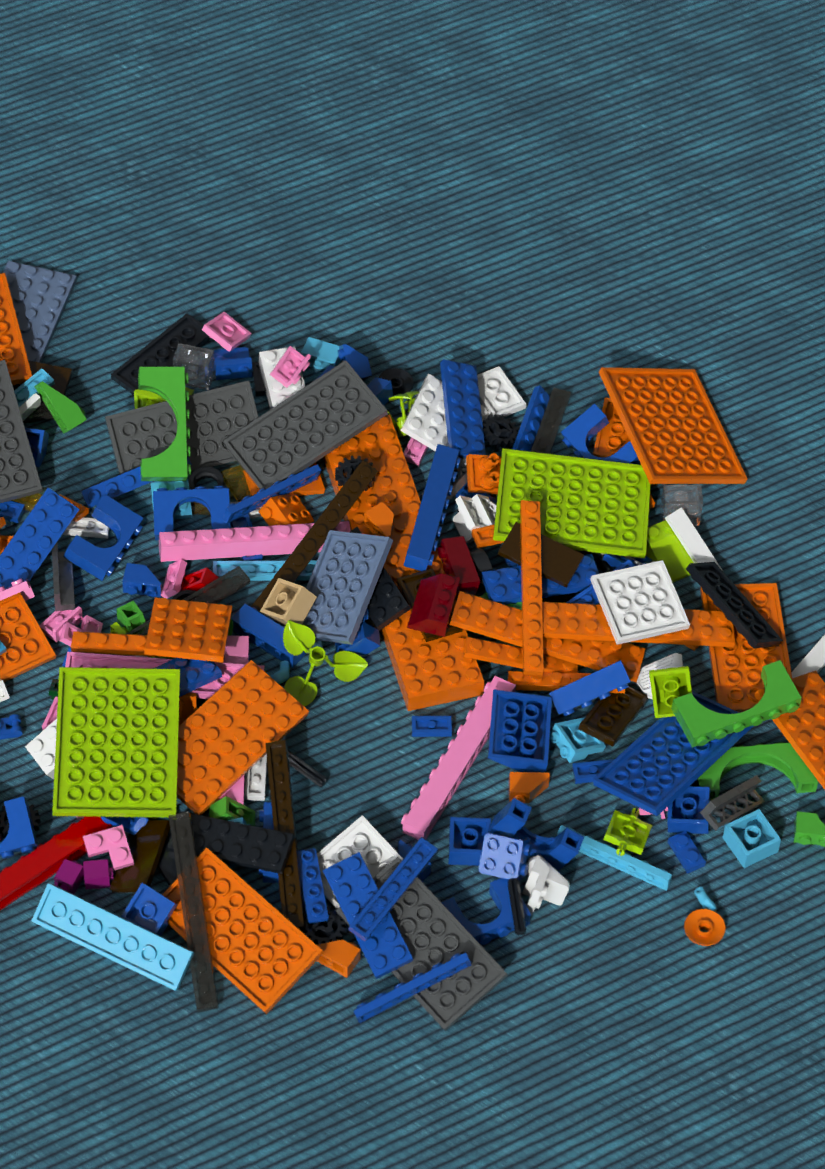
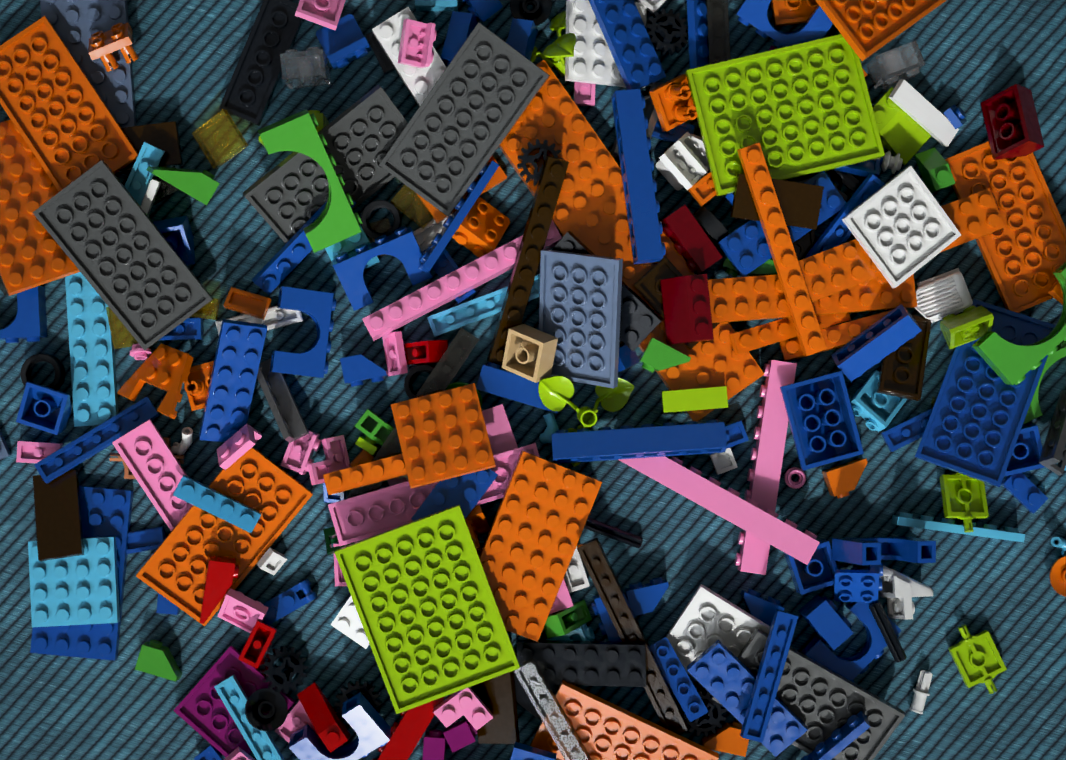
camera: 25 degrees left, 35 degrees up
(40, 301) = (103, 44): none -> orange plate
(101, 394) = (219, 139): none -> clear yellow tile
(312, 820) = (646, 597): none -> blue slope
(354, 692) = (638, 442): none -> blue brick
(380, 520) = (592, 218): orange slope -> none
(399, 634) = (661, 356): none -> bright green slope
(405, 759) = (728, 505): none -> bright pink brick
(415, 676) = (694, 399): none -> lime tile
(423, 743) = (723, 461): none -> white plate
(464, 883) = (829, 625): none -> blue brick
(484, 772) = (801, 477): none -> bright pink plate
(532, 978) = (921, 691): none -> white axle
(594, 967) = (977, 659): none -> lime plate
(690, 593) = (934, 170): none -> bright green slope
(722, 559) = (955, 116): none -> blue plate
(734, 605) = (992, 182): black plate -> none
(768, 573) = (1012, 123): none -> dark red slope

